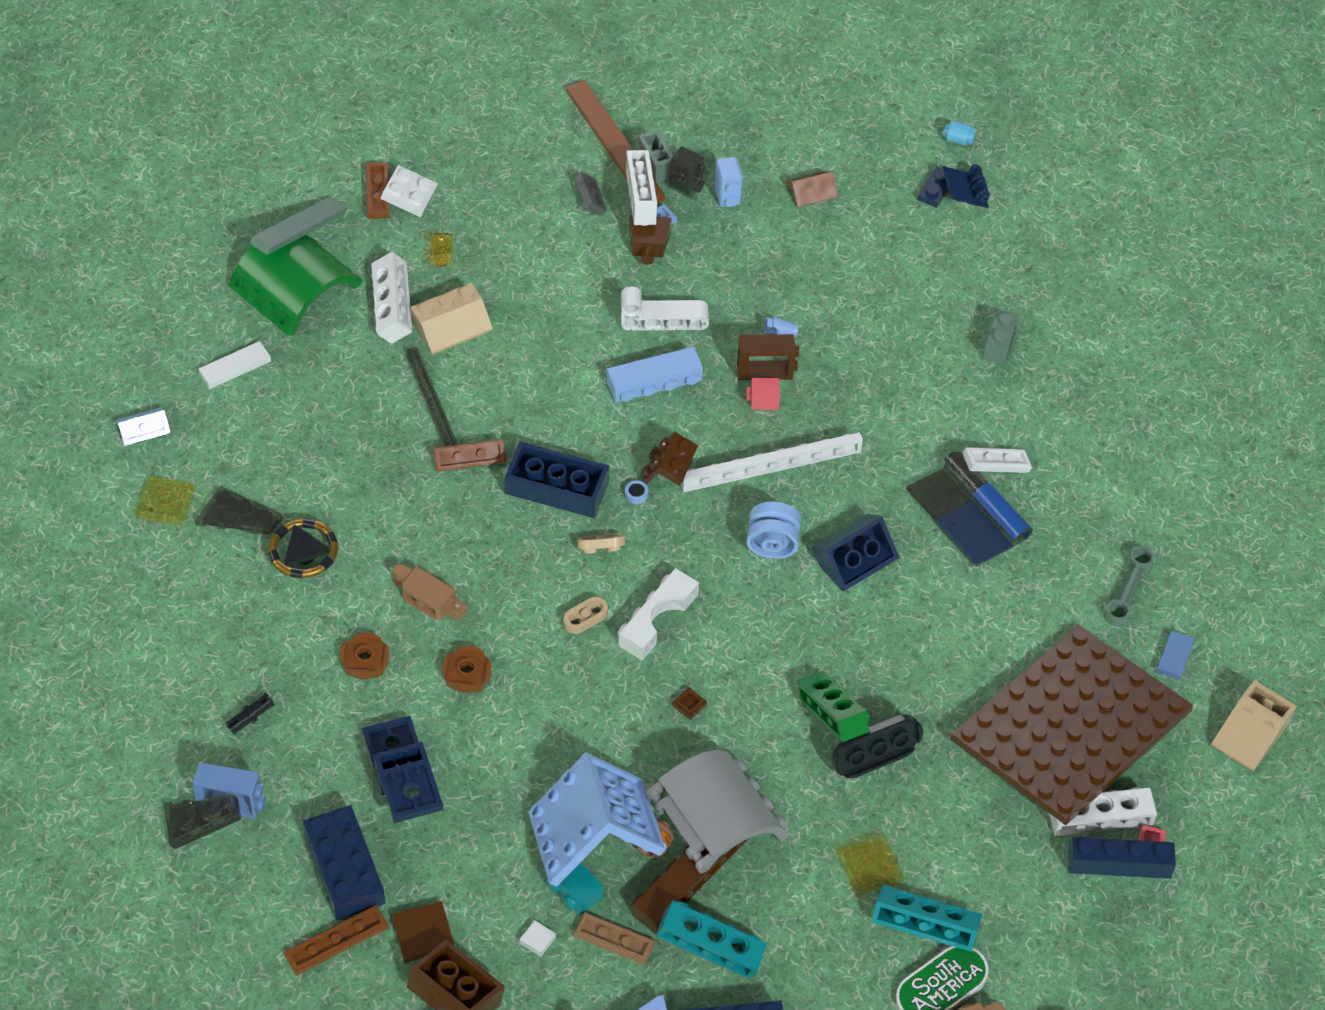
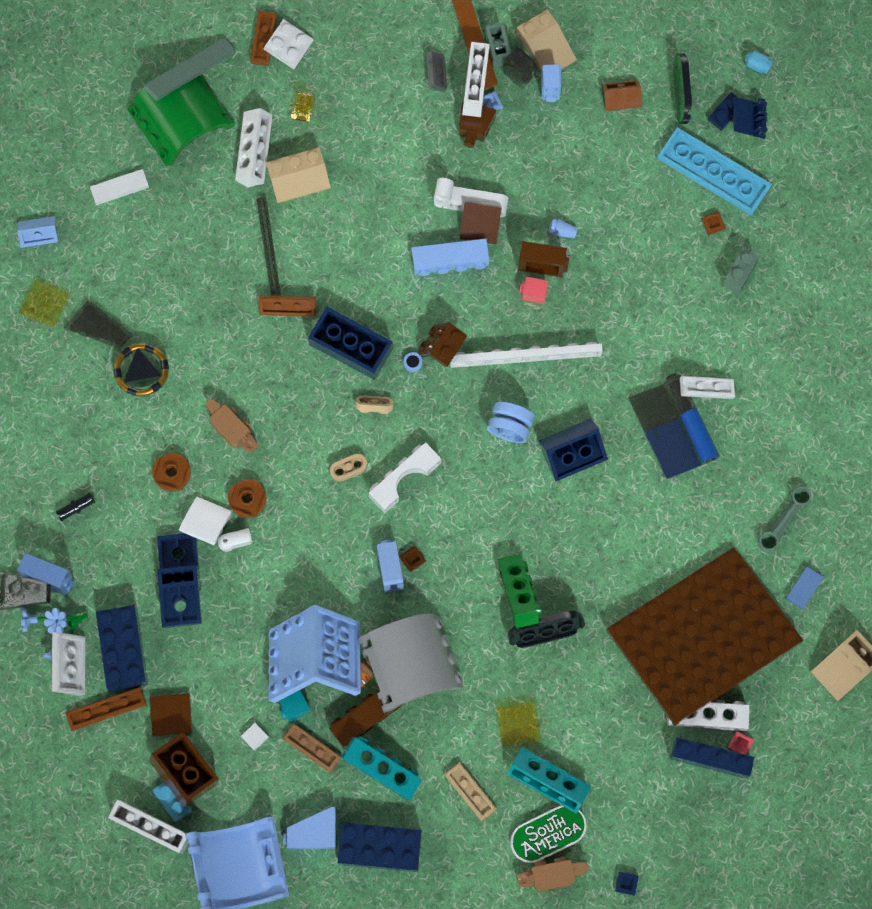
camera: 15 degrees right, 20 degrees up
(256, 834) = (56, 620): none -> light blue plant
(278, 889) = (68, 663): none -> white tile
(419, 701) = (205, 520): none -> white slope
(462, 717) = (234, 540): none -> white piece
(666, 713) = (390, 566): none -> light blue slope
(681, 331) = (480, 222): none -> reddish brown tile
(711, 140) = (545, 41): none -> tan slope
(830, 953) = (470, 792): none -> tan tile
(881, 166) = (682, 88): none -> black tile
(940, 245) = (714, 171): none -> medium azure plate
(954, 298) = (713, 223): none -> dark orange tile

